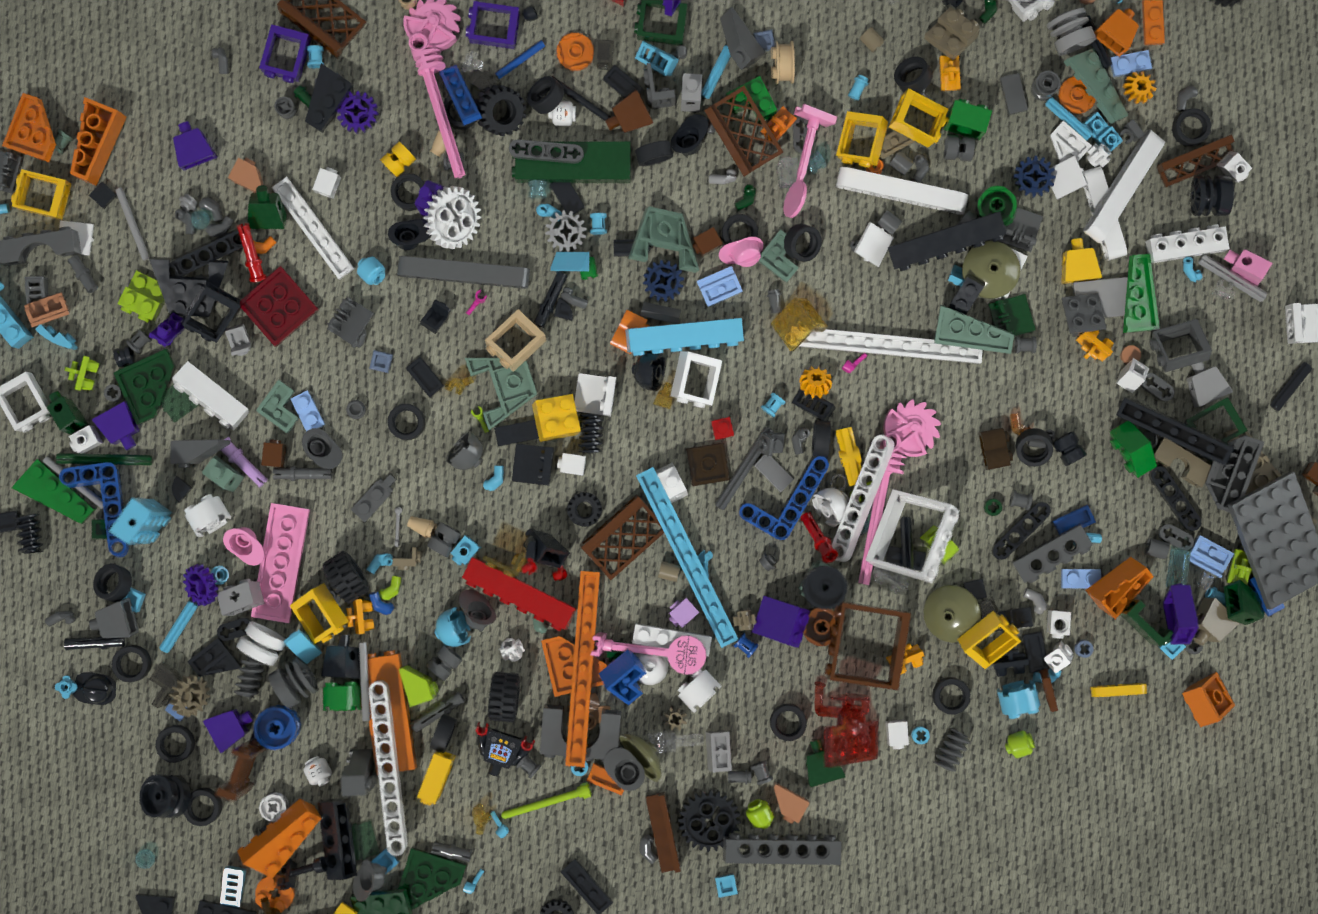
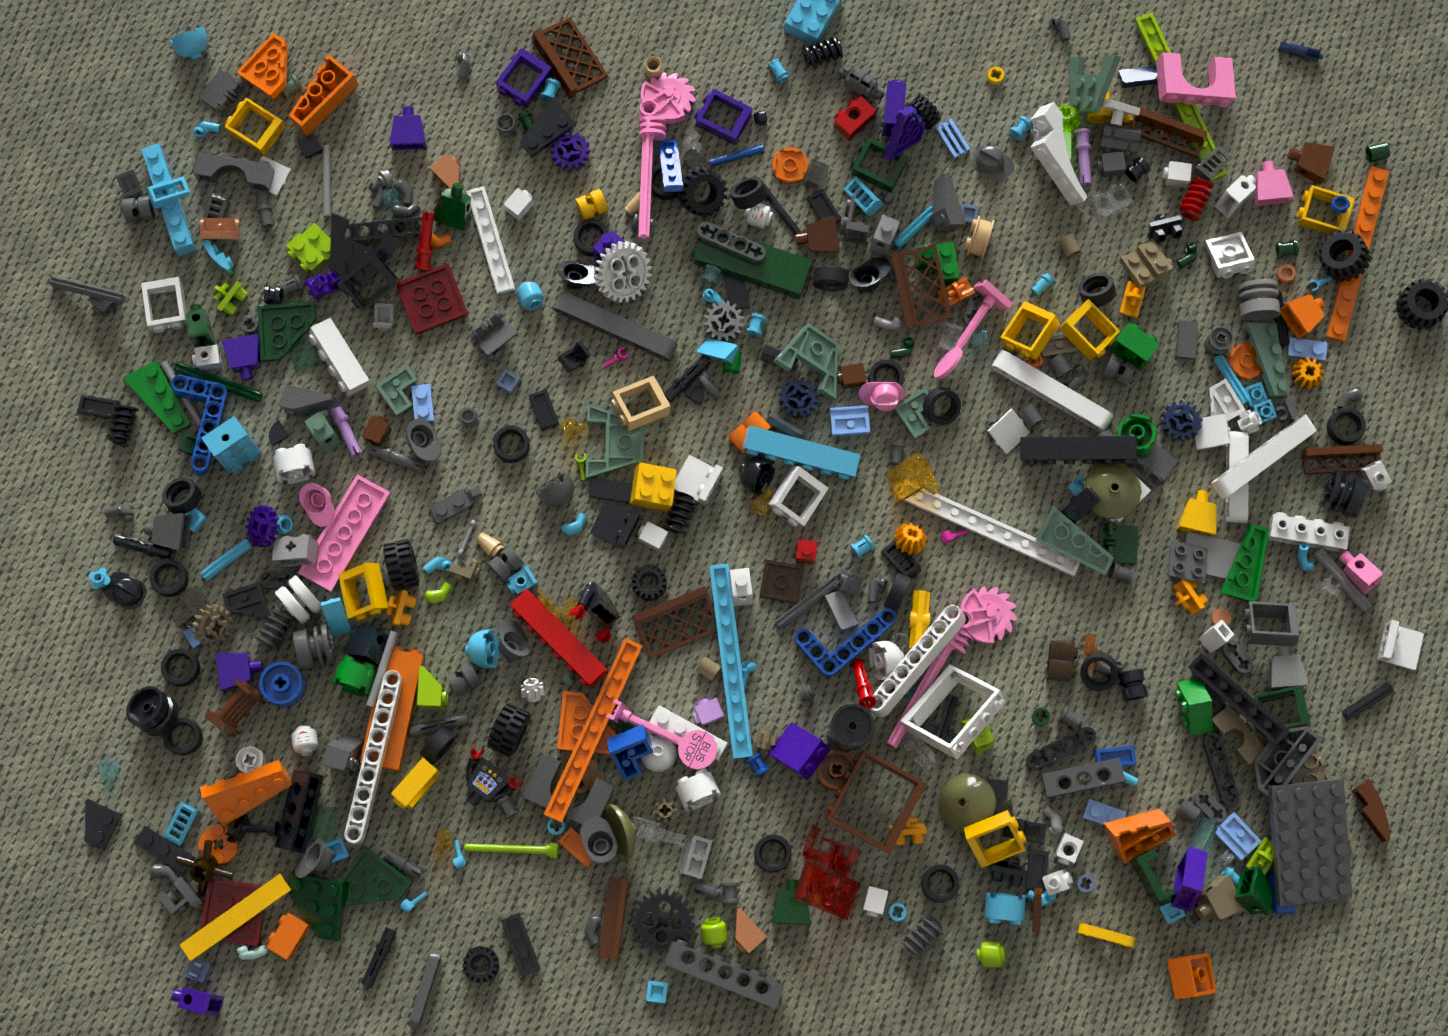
camera: 20 degrees right, 10 degrees down
(380, 606) = (423, 606): blue arm -> none

